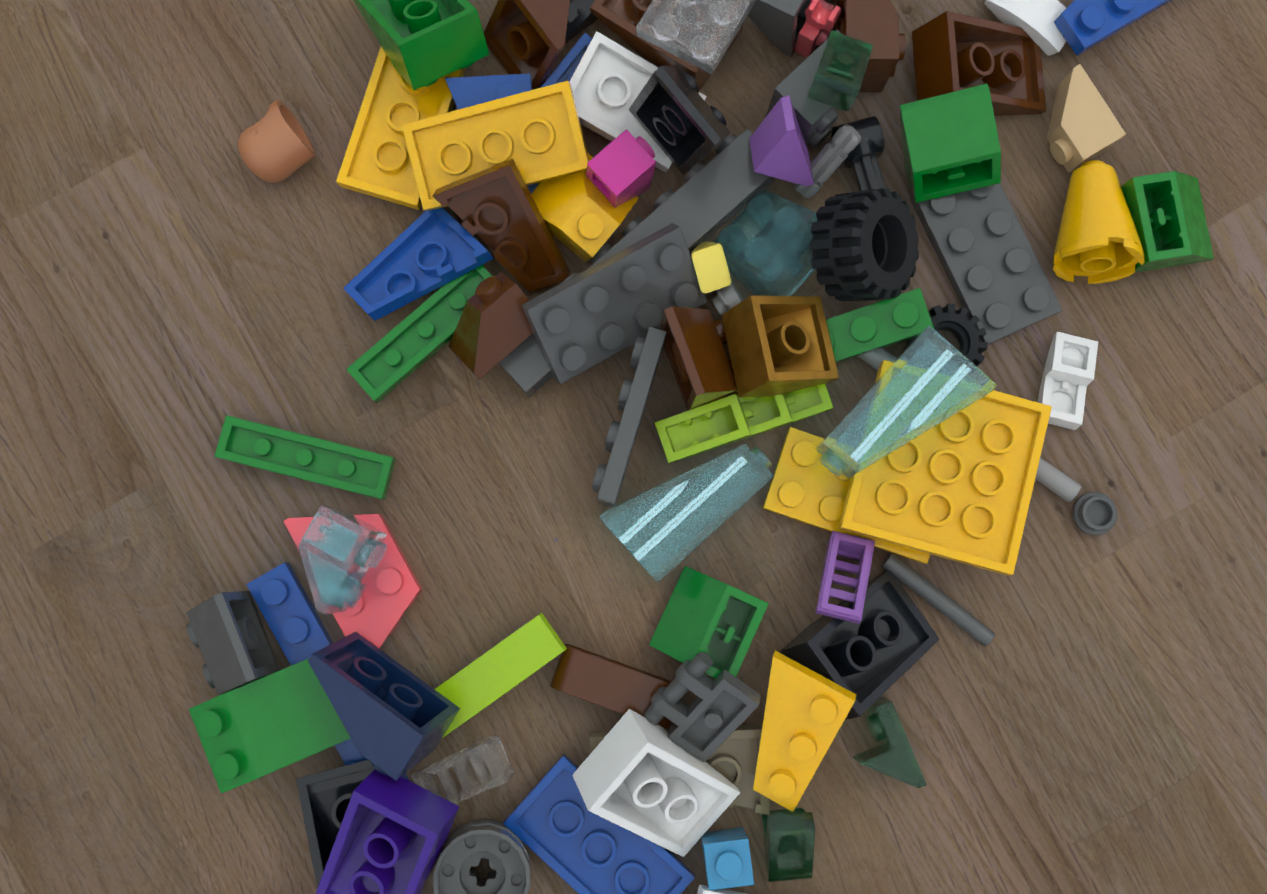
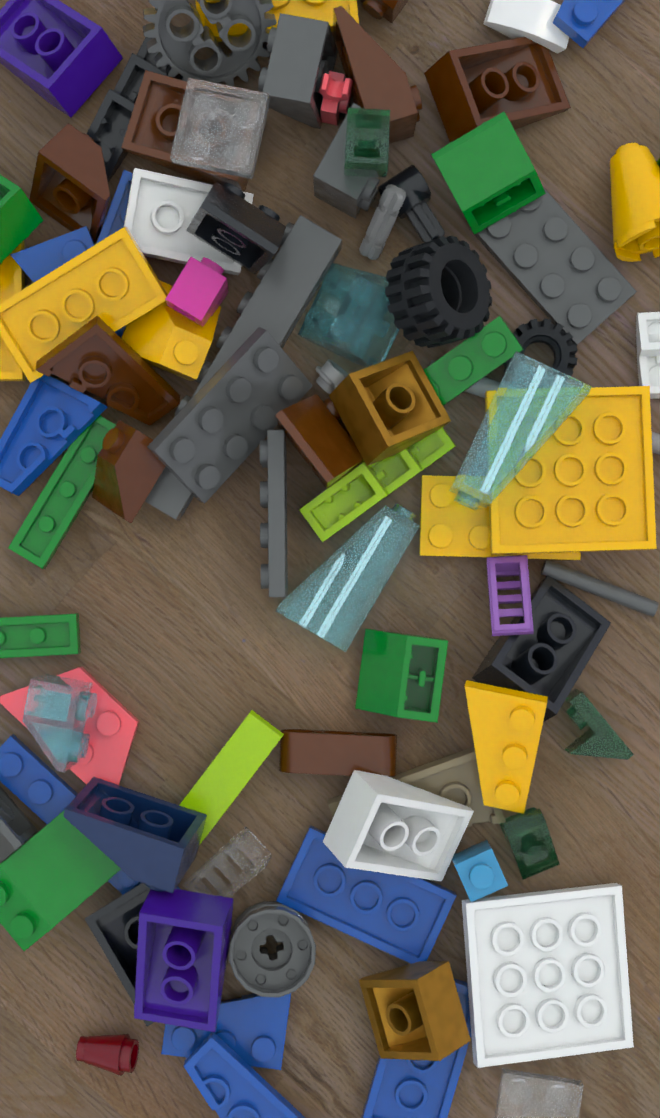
camera: 10 degrees left, 5 degrees up
(710, 266) = (305, 353): light yellow slope -> none
(713, 715) = (428, 753): dark grey plate -> none
(780, 147) = (336, 225): medium lavender slope -> none
(1080, 122) = (604, 111): tan slope -> none

